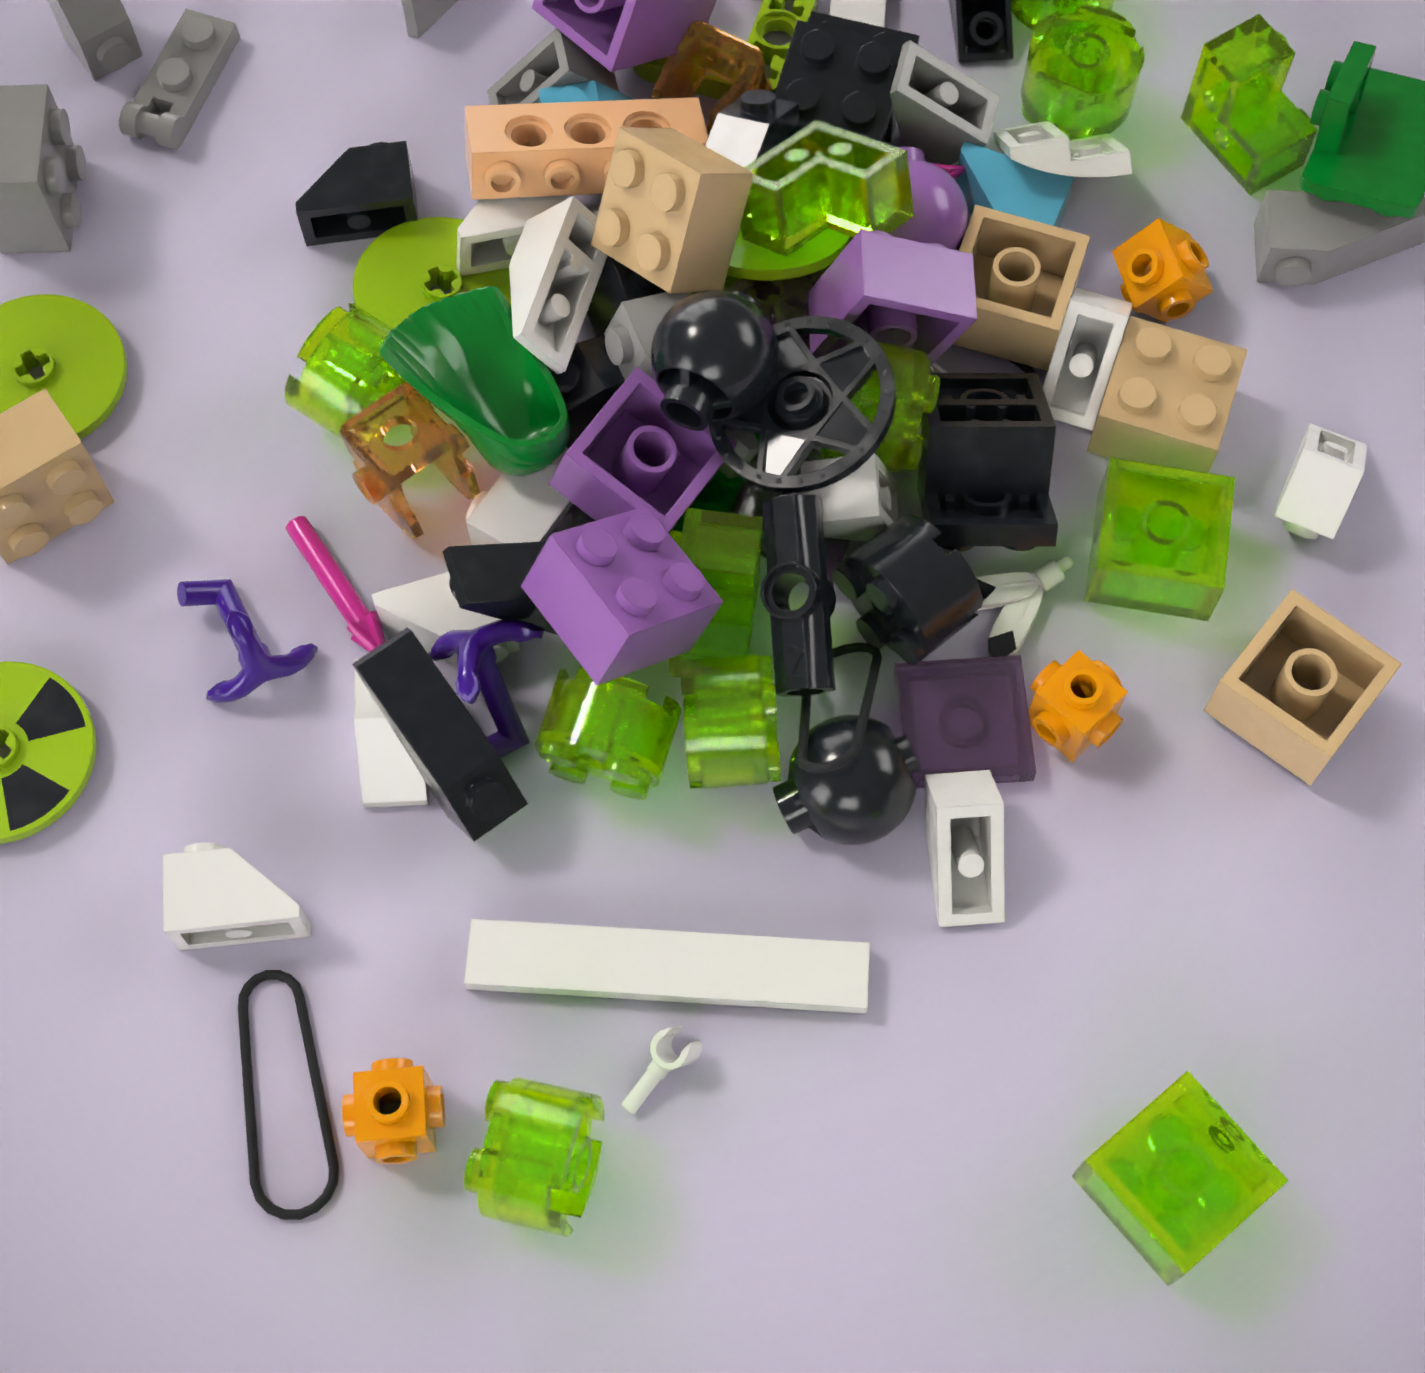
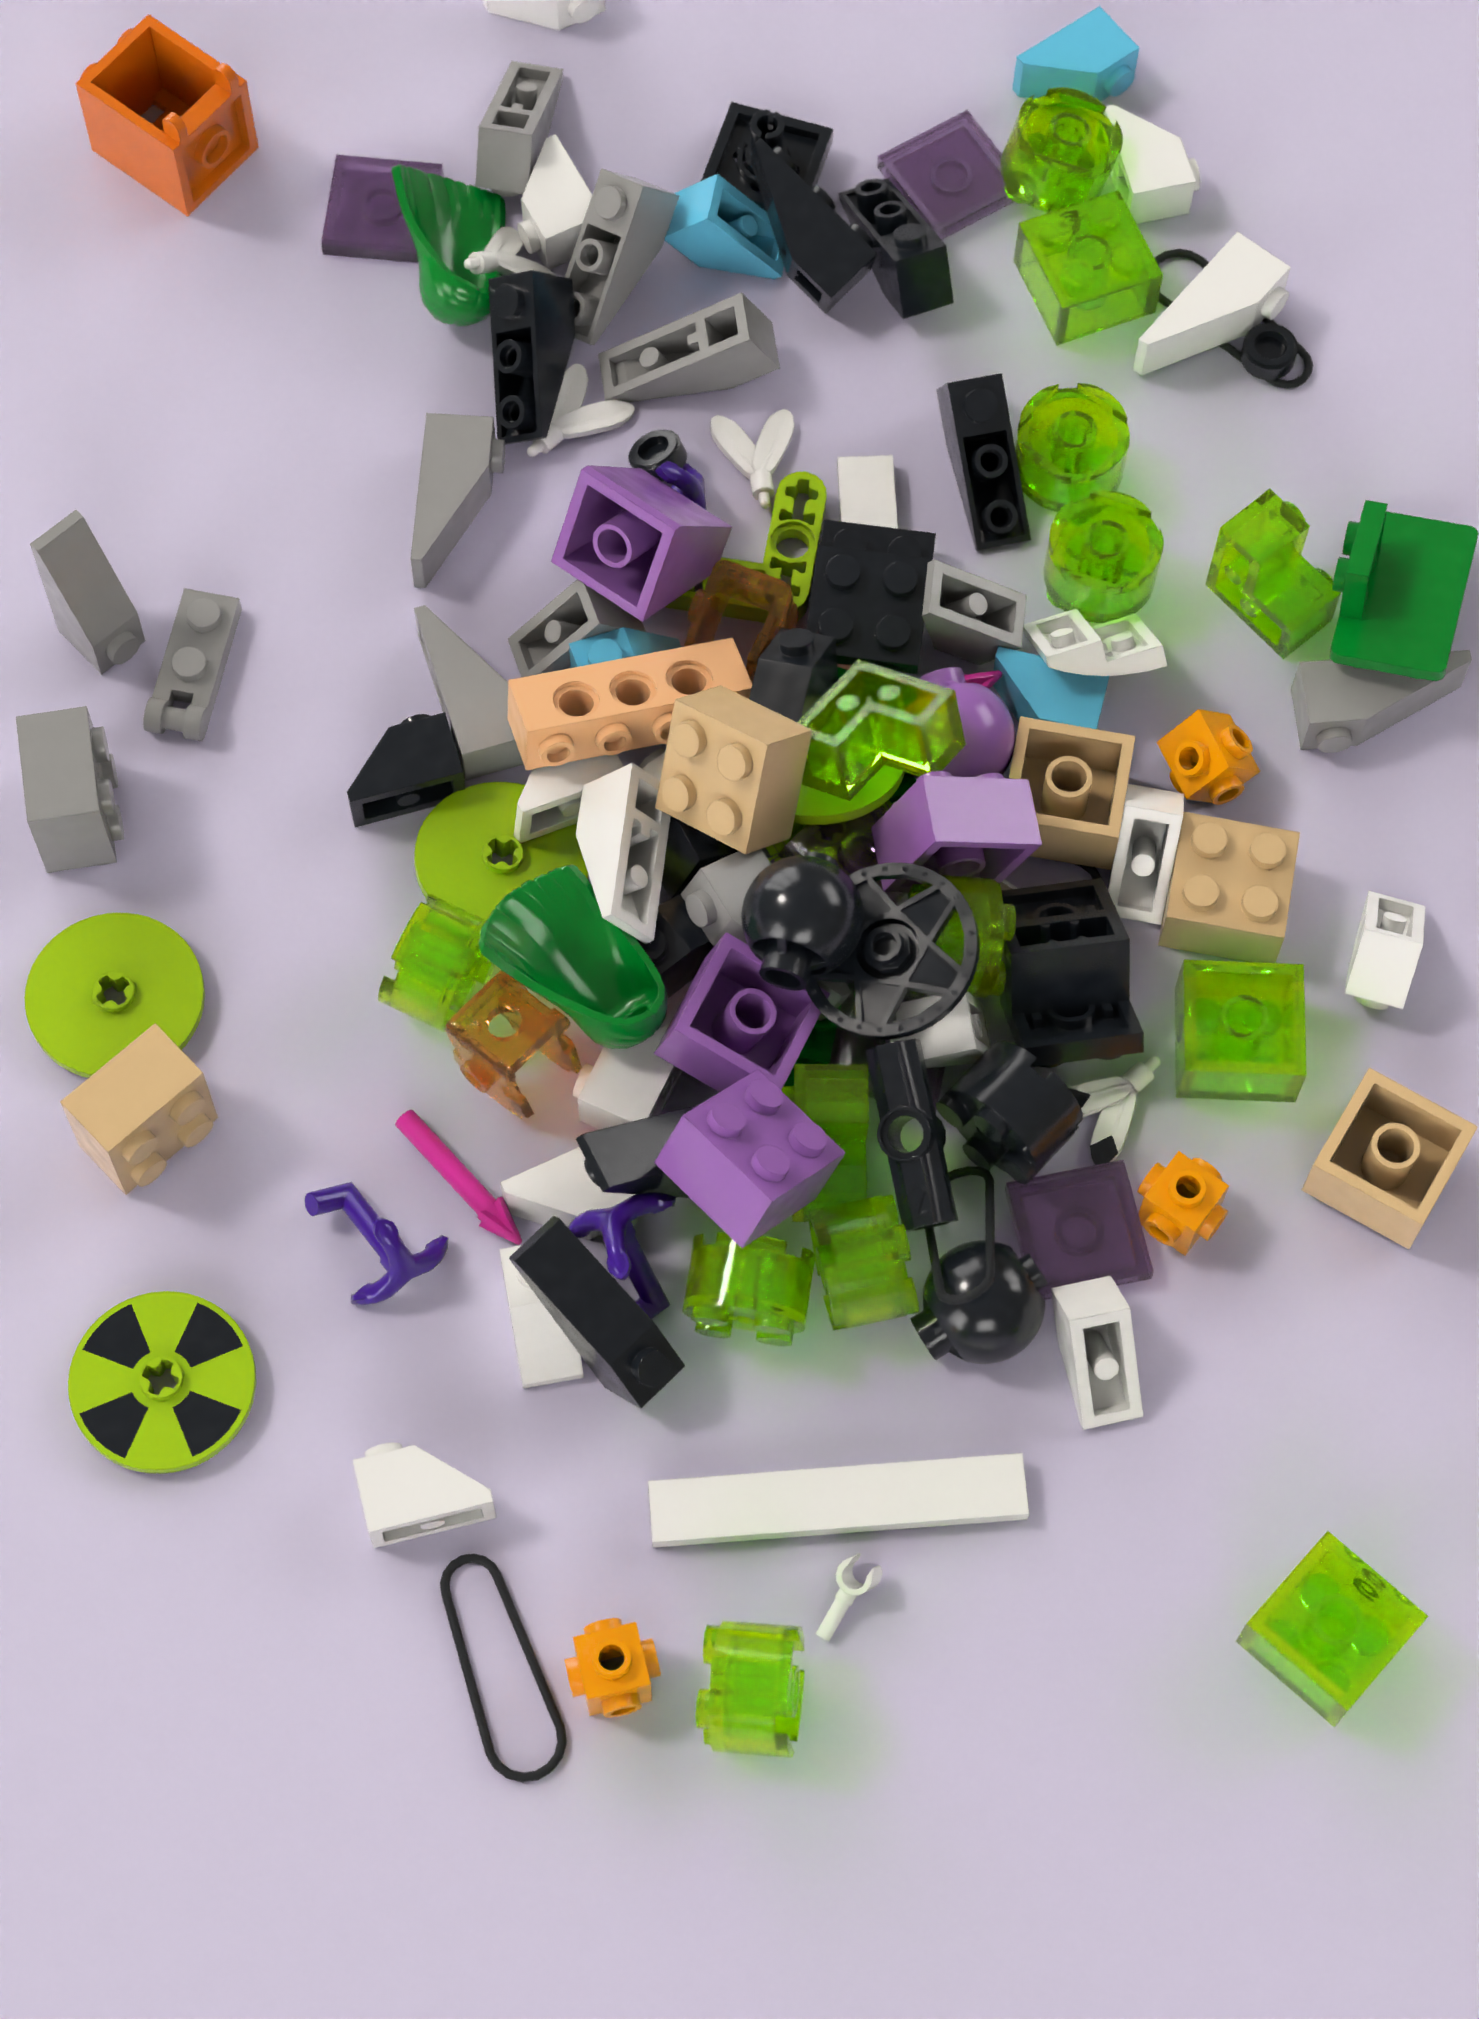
camera: 10 degrees left, 0 degrees up
(435, 137) = (470, 697): none -> light grey slope

